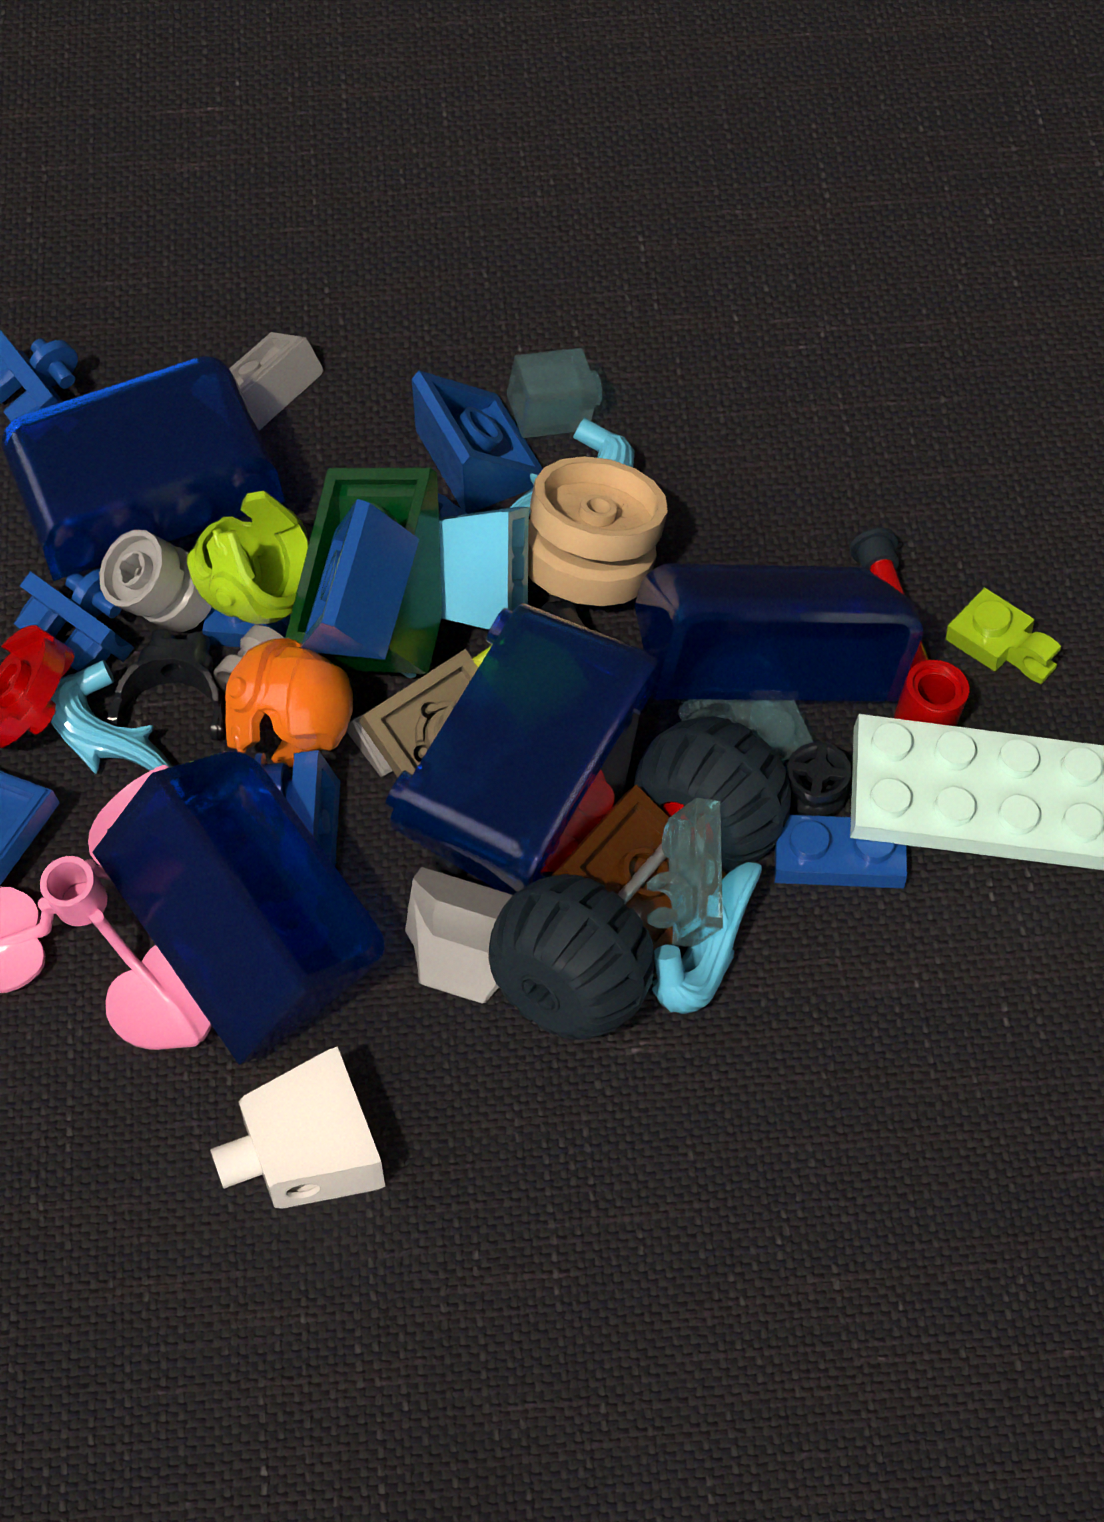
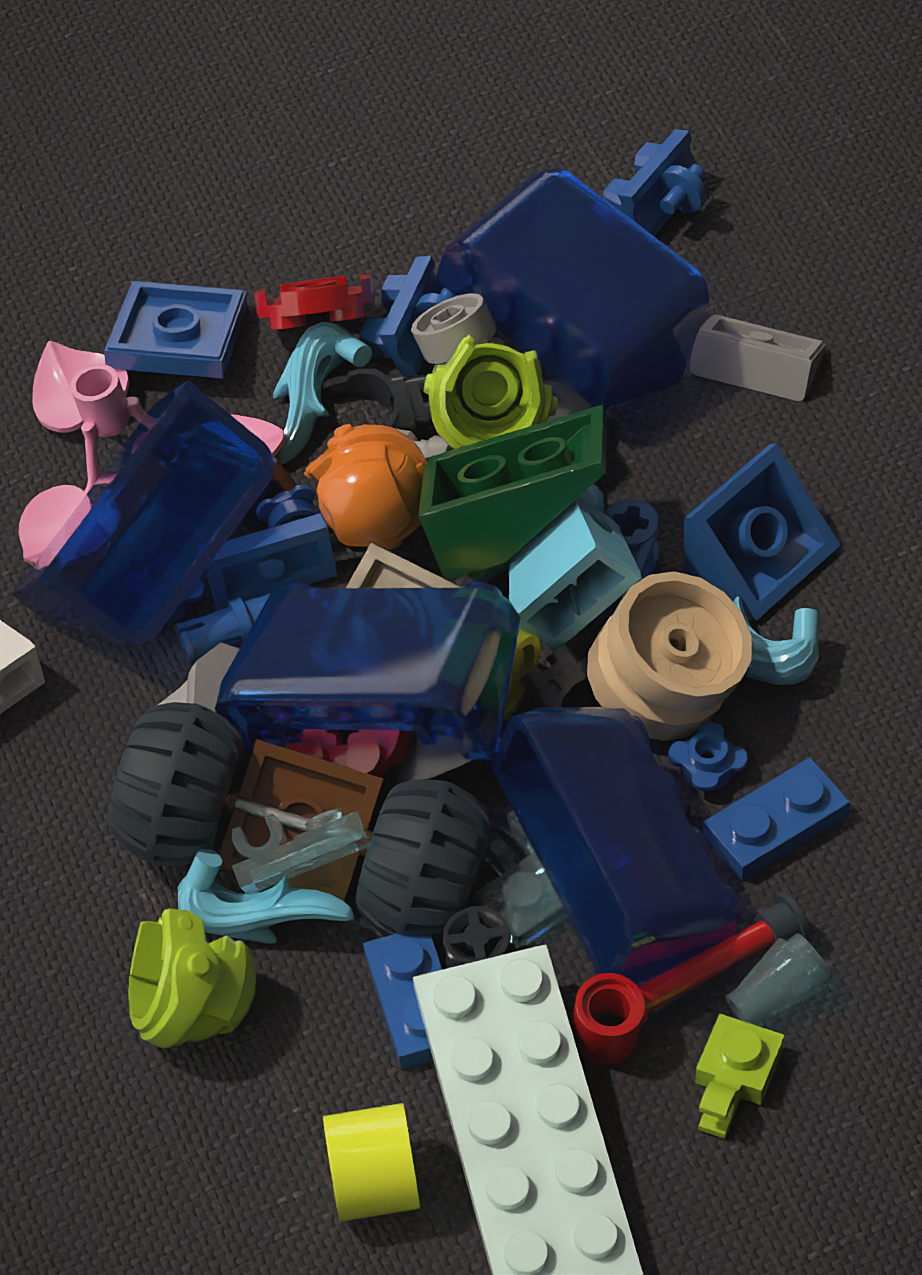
camera: 75 degrees right, 5 degrees down
(361, 585) = (455, 457): blue slope -> none
(366, 866) = (224, 626): none -> blue pin
(552, 392) = (845, 580): clear light blue brick -> none
(691, 539) = (713, 772): none -> blue plate
(760, 520) = (776, 818): none -> blue plate
(792, 1020) = (184, 985): none -> lime helmet
(932, 573) = (781, 979): none -> clear light blue cone
(1022, 920) = (371, 1162): none -> neon yellow piece

